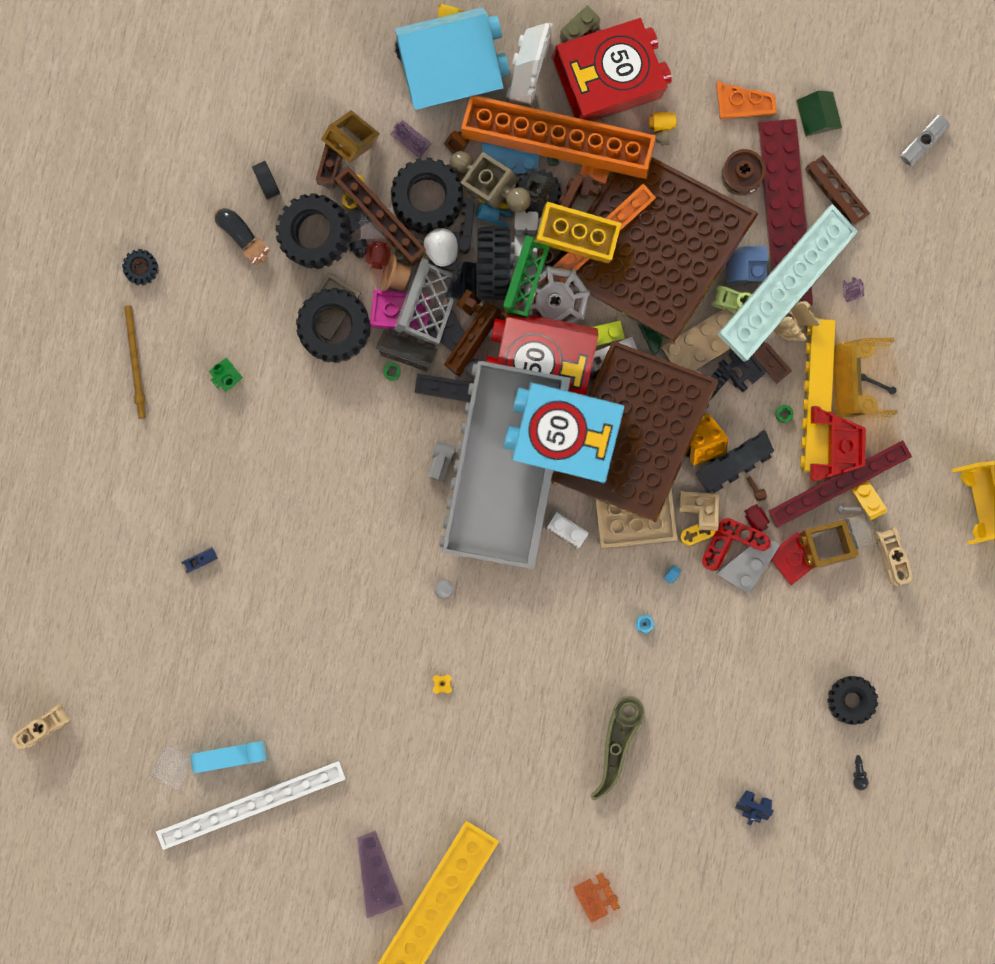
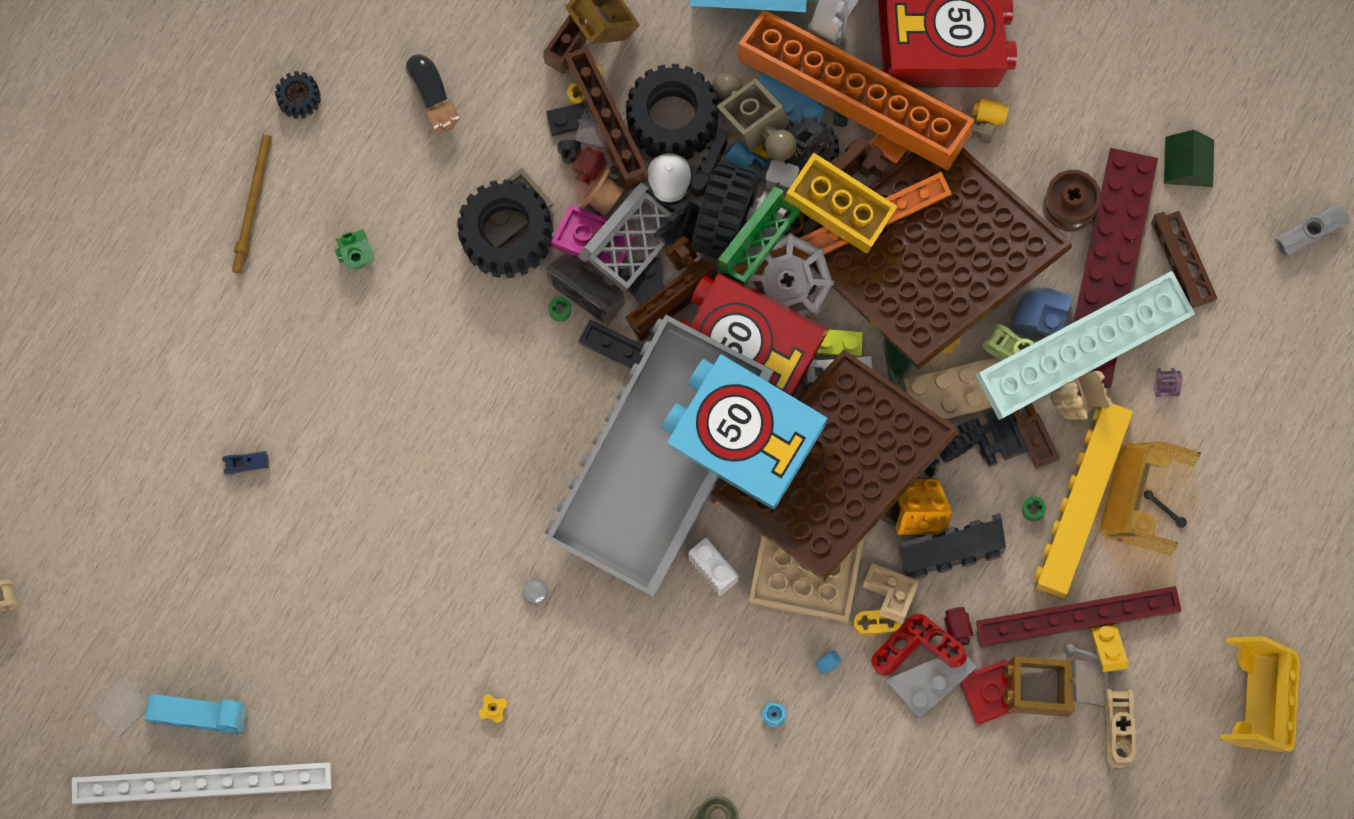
camera: 25 degrees right, 10 degrees down
(266, 180) = (483, 37): black tyre -> none
(292, 220) = (503, 89): black tyre -> none
(410, 138) = (675, 42): clear purple hinge -> none
(442, 457) = (583, 434): light grey piece -> none
(456, 142) = (728, 62): reddish brown tile -> none
(742, 103) = (1096, 120): orange wing -> none
(759, 494) = (972, 599): reddish brown hand -> none
(845, 445) = (1098, 568): red wing -> none

